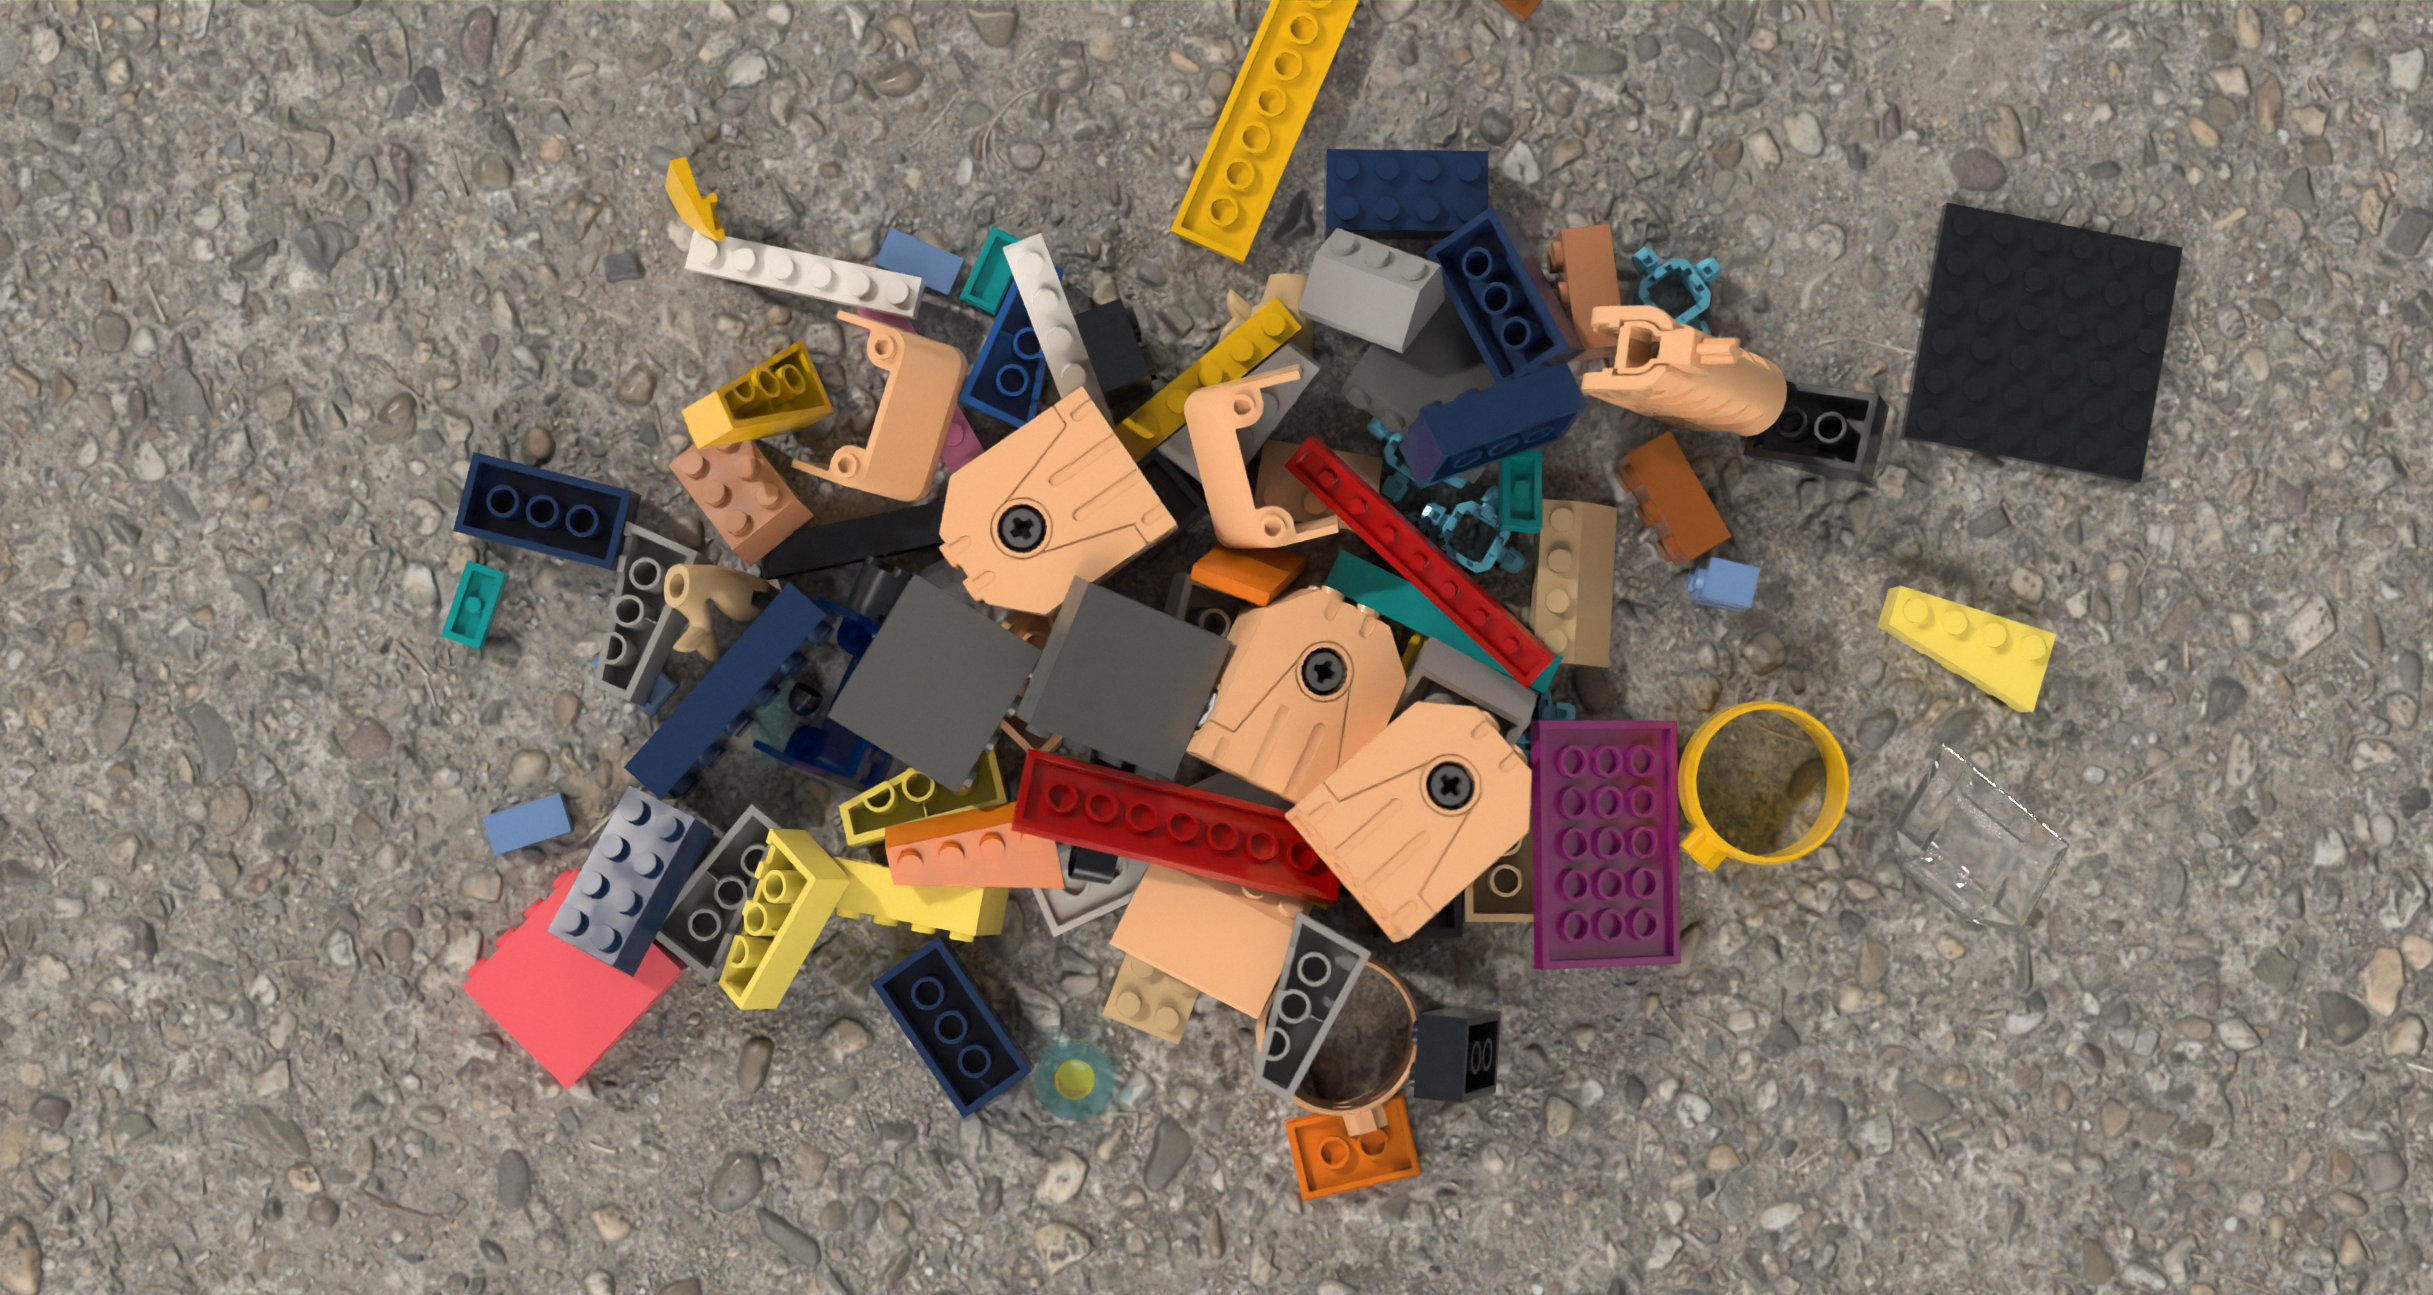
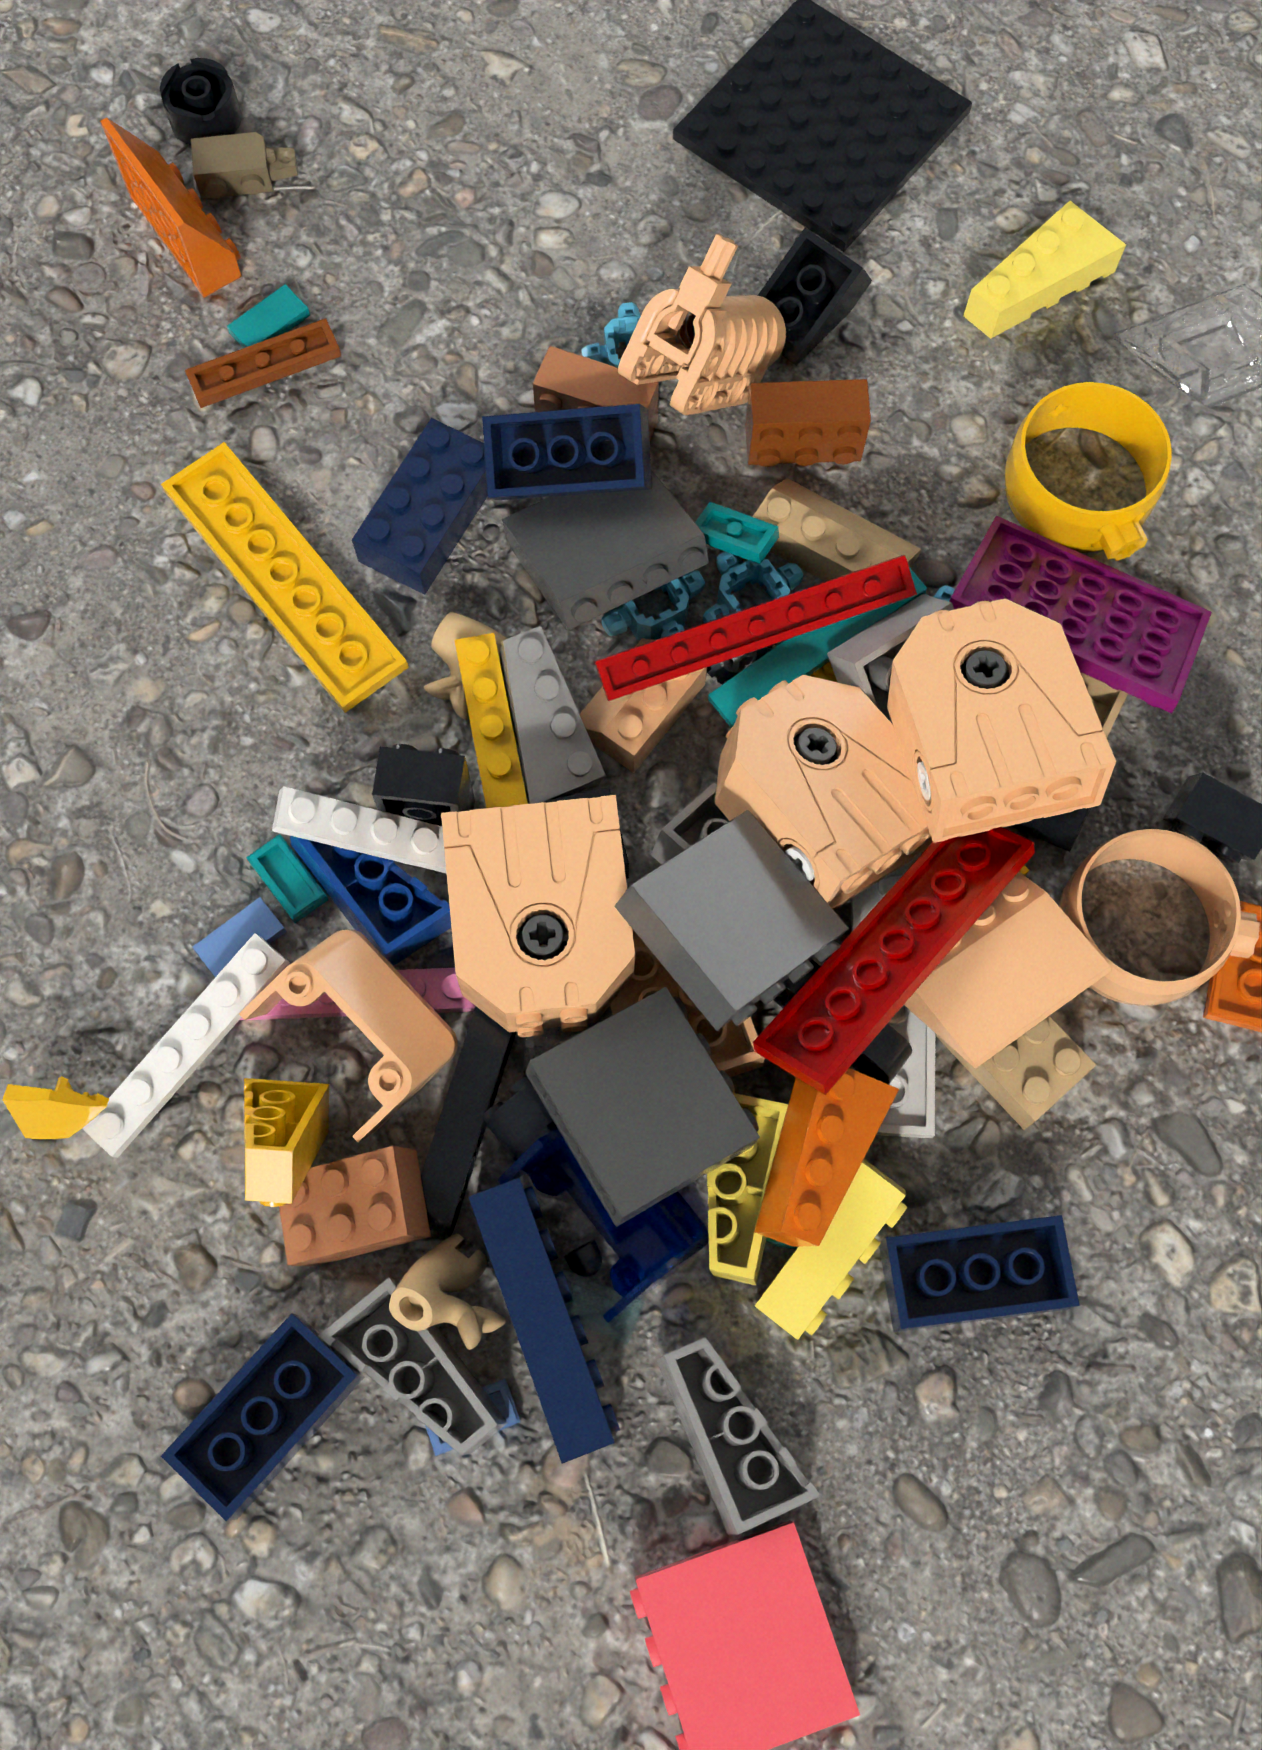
camera: 60 degrees left, 15 degrees down
(475, 605) = (312, 1546): teal plate -> none
(528, 824) = (562, 1612): medium blue tile -> none
(630, 880) = (680, 1521): brick -> none
(781, 923) = (793, 1383): light yellow wedge -> none
(1074, 1080) = (1081, 1188): clear light blue tile -> none
(1211, 419) = (585, 743): light nougat windscreen -> none
(1248, 573) = (685, 777): orange tile -> none
(1310, 994) = (1121, 909): light grey wedge -> none
(1371, 290) = (495, 555): light grey slope -> none
(1492, 423) = (670, 500): dark blue brick -> none
(1722, 584) = (900, 418): medium blue brick -> none

